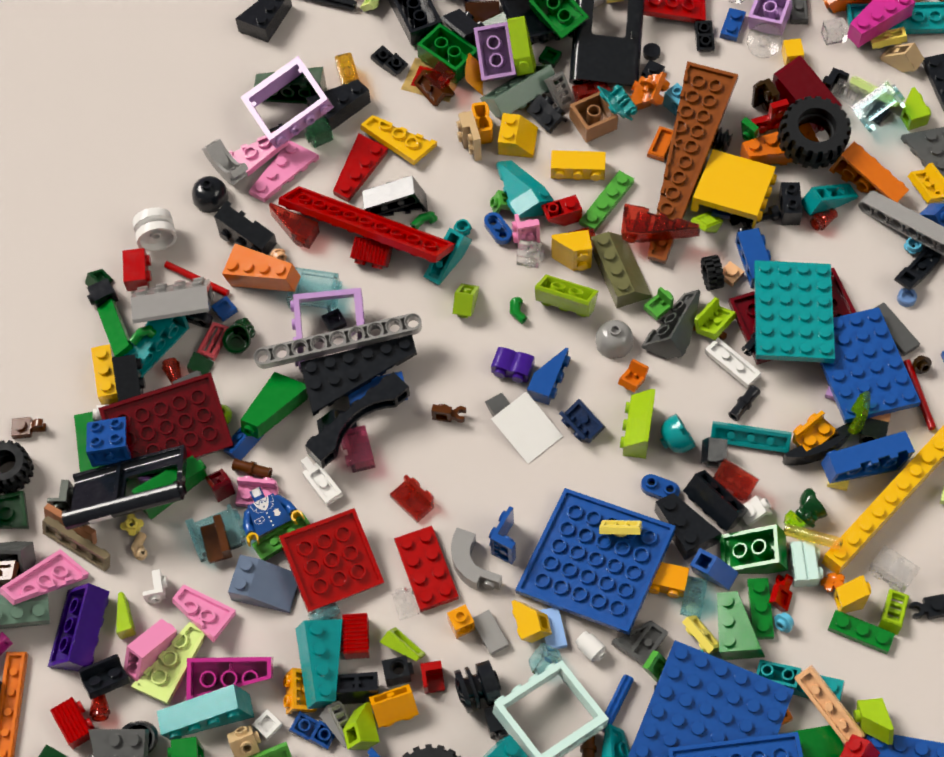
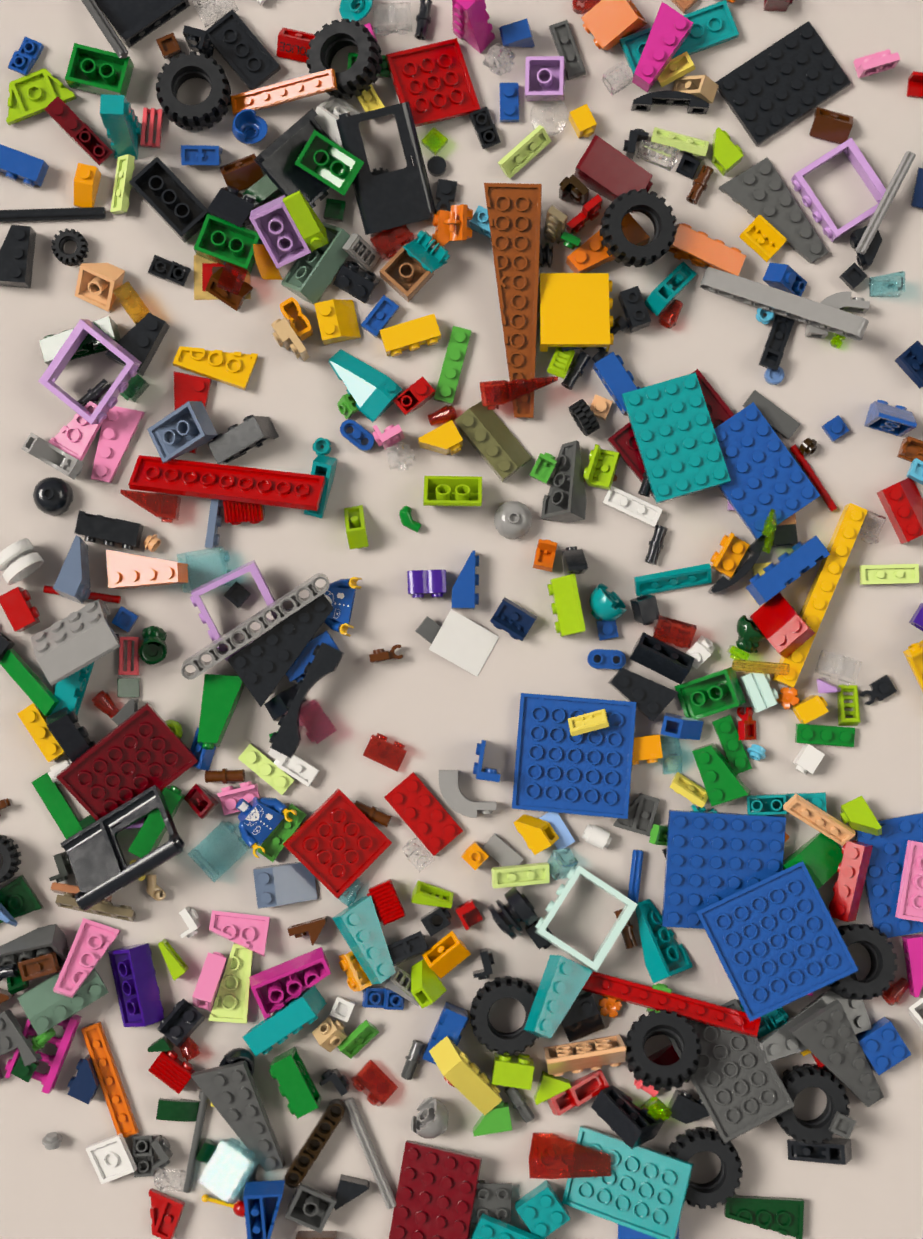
camera: 25 degrees left, 25 degrees up
(75, 691) = (161, 1044): none -> dark green slope
(107, 441) = (79, 805): blue bracket -> none
(141, 332) = (65, 683): green arm -> none
(198, 252) = (74, 576): none -> sand blue slope
(216, 540) = (223, 859): reddish brown panel -> none
(274, 634) = (313, 927): none -> reddish brown slope
(293, 477) = (266, 769): none -> yellowish green plate
(314, 13) = (66, 236): none -> black tyre
(323, 49) = (98, 282): none -> light nougat slope
(340, 254) = (214, 522): none -> sand blue plate
(345, 173) = (182, 431): none -> sand blue slope
(379, 552) = (373, 814): none -> reddish brown pin
(421, 218) = (279, 447): green arm -> none
(428, 355) = (341, 596): none -> blue torso
(433, 728) = (487, 960): none -> black bracket
(499, 655) = (520, 875): none -> yellowish green plate
(561, 141) = (380, 316): none -> blue plate
(656, 32) = (434, 141): none -> clear neon green plate
(660, 144) = (484, 277): orange tile -> none
(662, 387) = (574, 561): none -> black slope
(670, 462) = (606, 629): none -> blue plate
(718, 237) = (576, 370): none -> black pin
(735, 59) = (524, 151): none -> yellowish green plate
(739, 108) = (555, 225): none -> dark tan plate
(836, 646) = (808, 759): none -> white brick
(848, 507) = (782, 625): none -> red slope
(876, 57) = (695, 104): none -> black slope
(876, 103) = (676, 177): clear light blue panel -> none
(877, 584) = (826, 687): none -> slope
(883, 128) = (699, 184): none -> reddish brown pin

